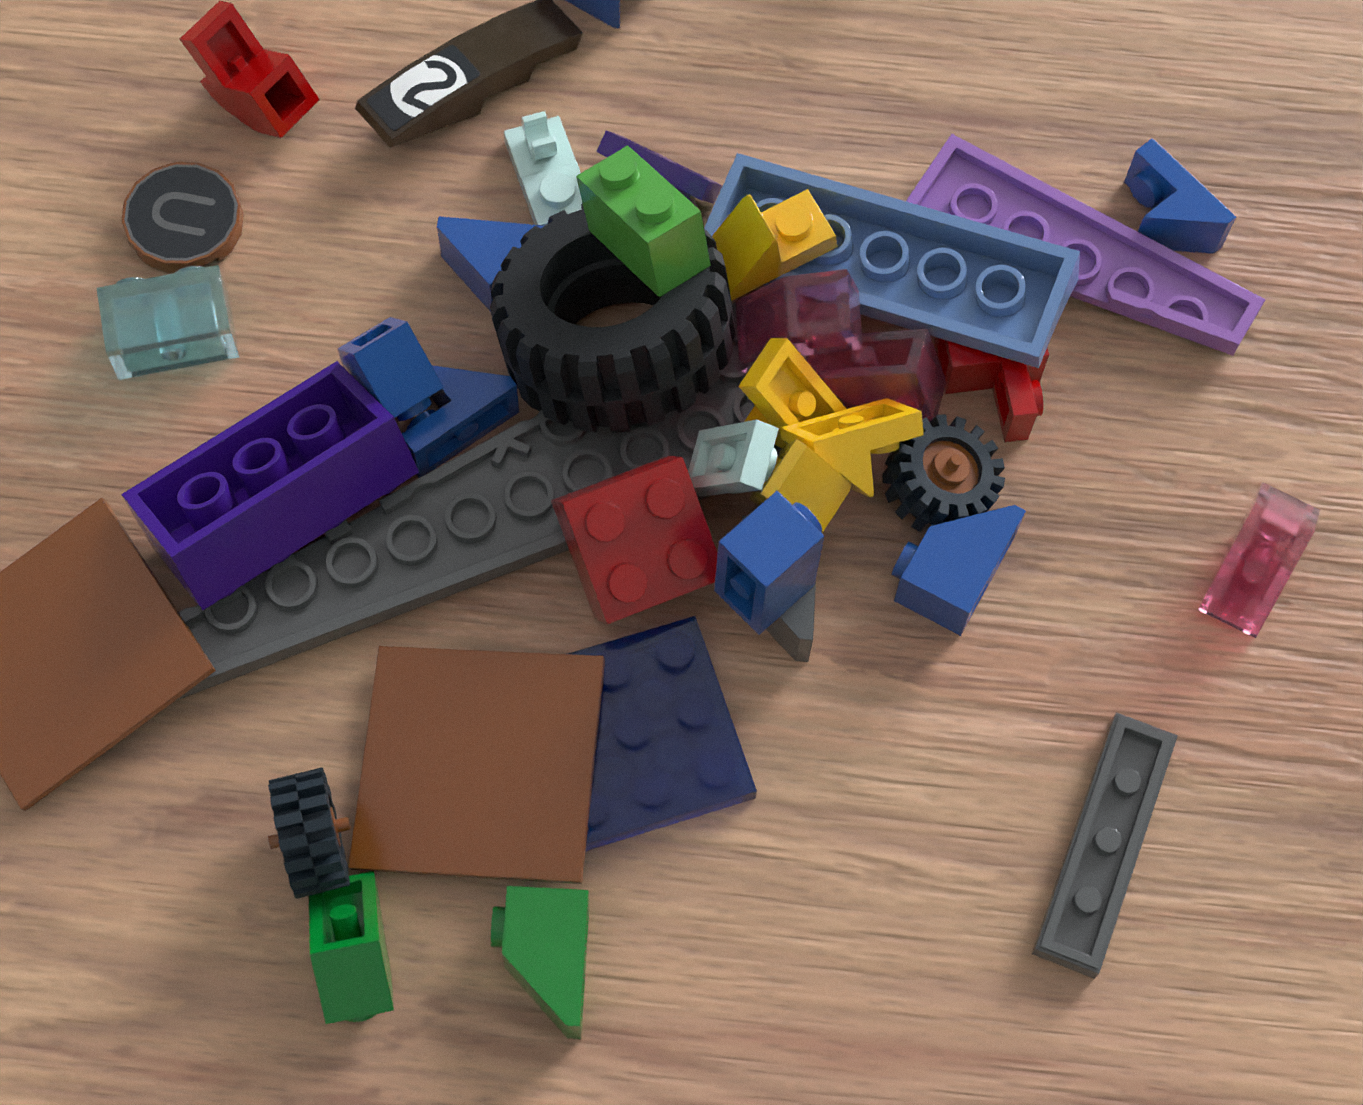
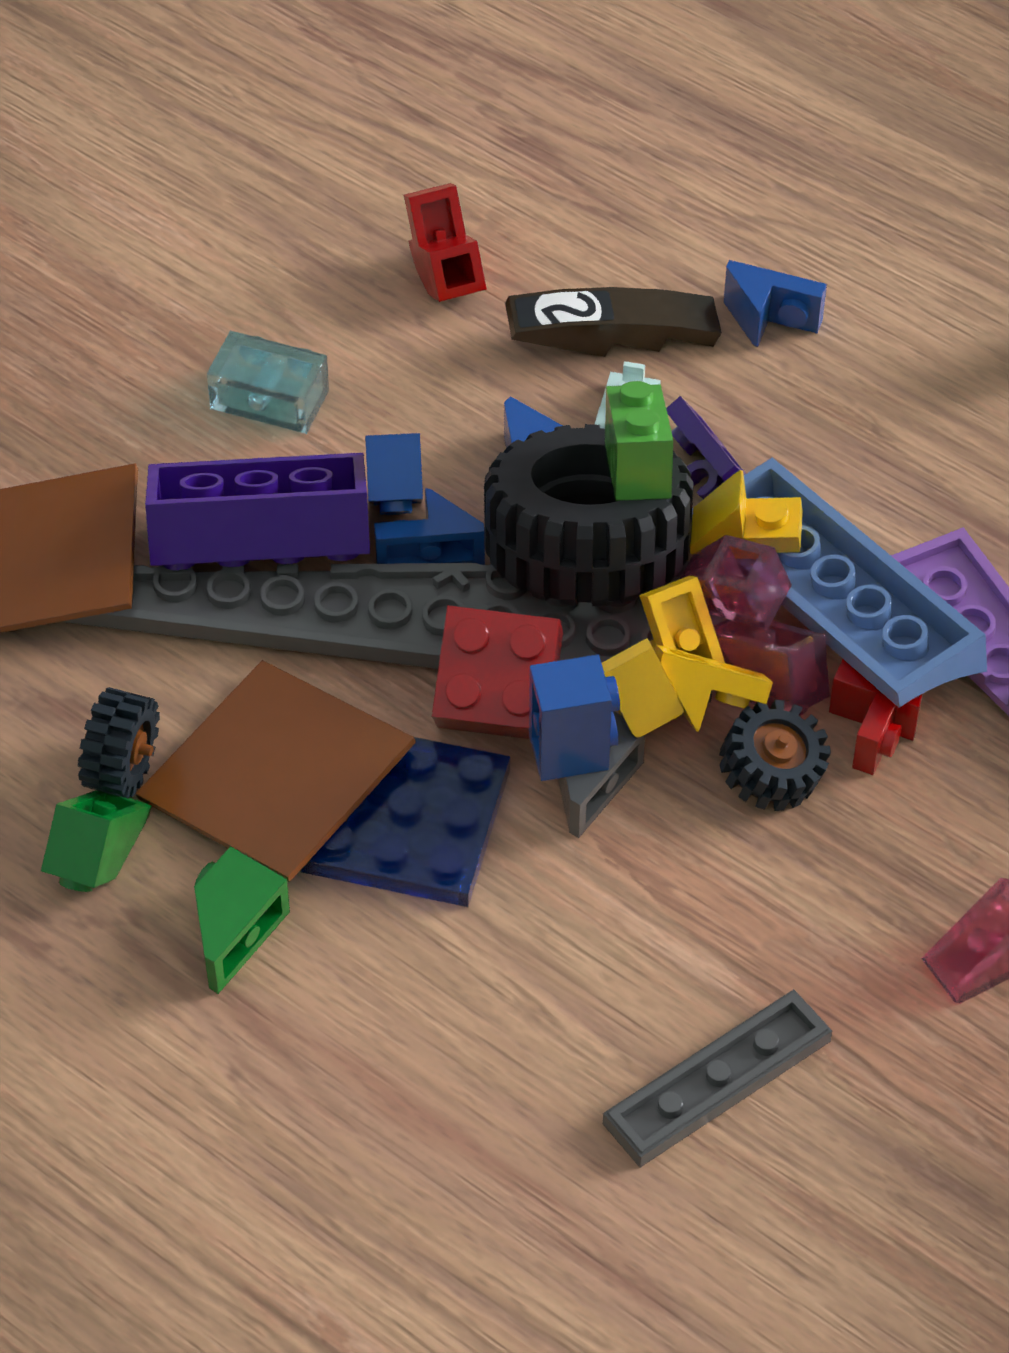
camera: 35 degrees right, 15 degrees down
(182, 216) = (333, 321): black tile -> none
(733, 458) = (609, 638): light aqua plate -> none
(955, 566) = (742, 822): blue slope -> none

